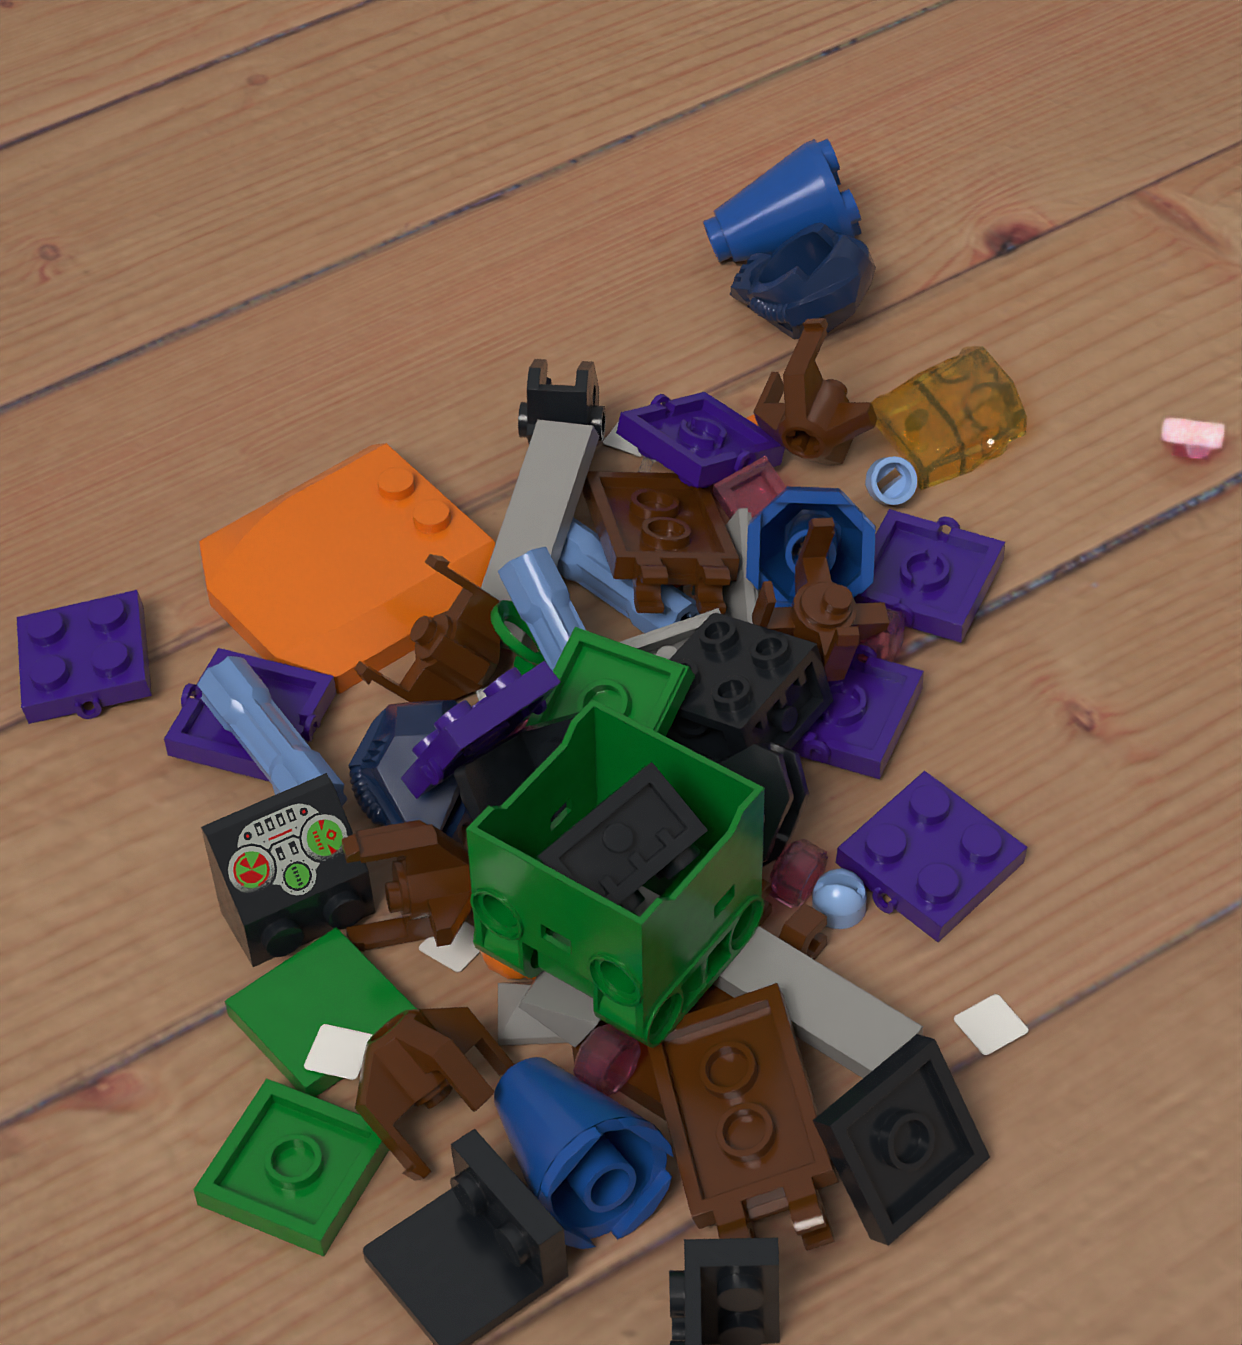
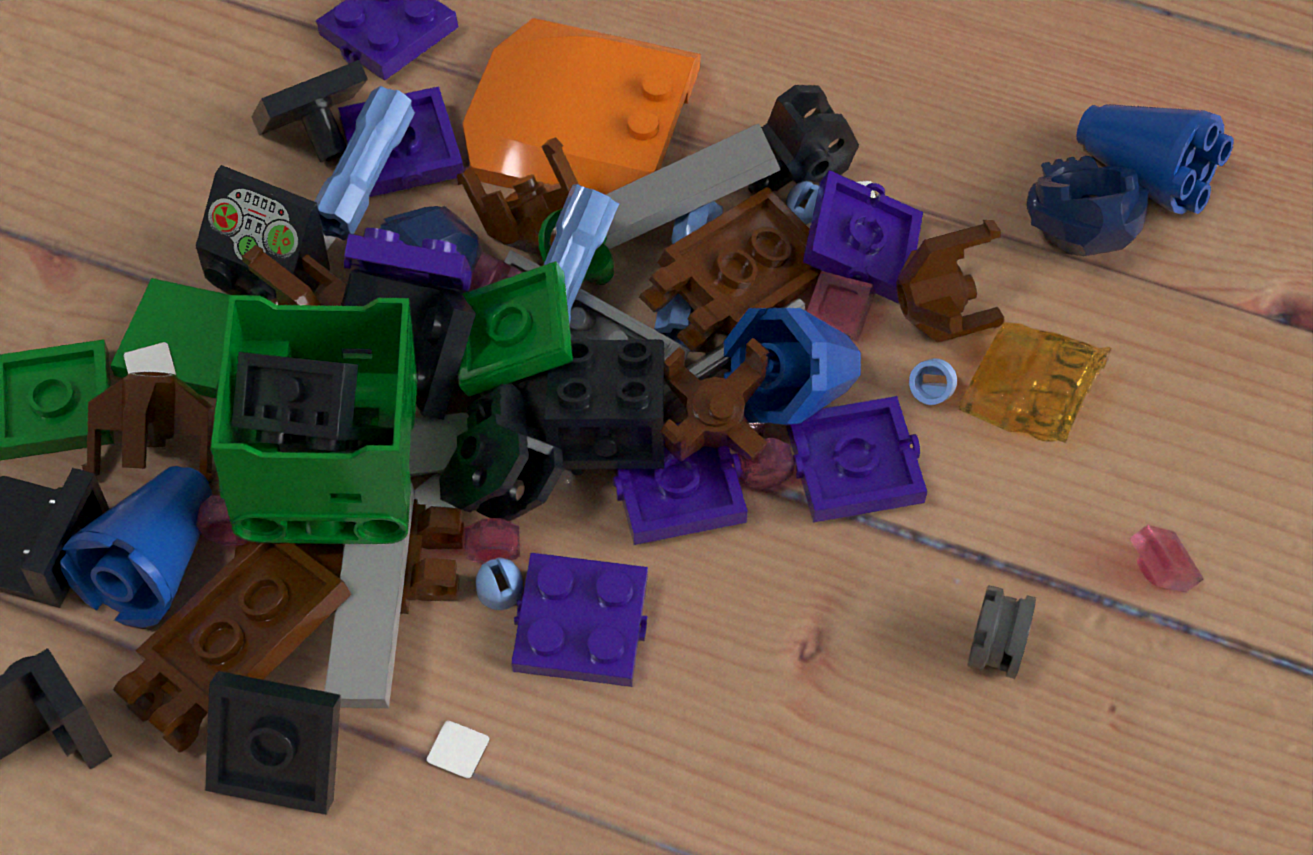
camera: 50 degrees right, 10 degrees up
(147, 751) = (312, 104): none -> black tile
(615, 453) = (802, 191): none -> light blue hinge
(1186, 567) = (1001, 632): none -> dark grey wheel

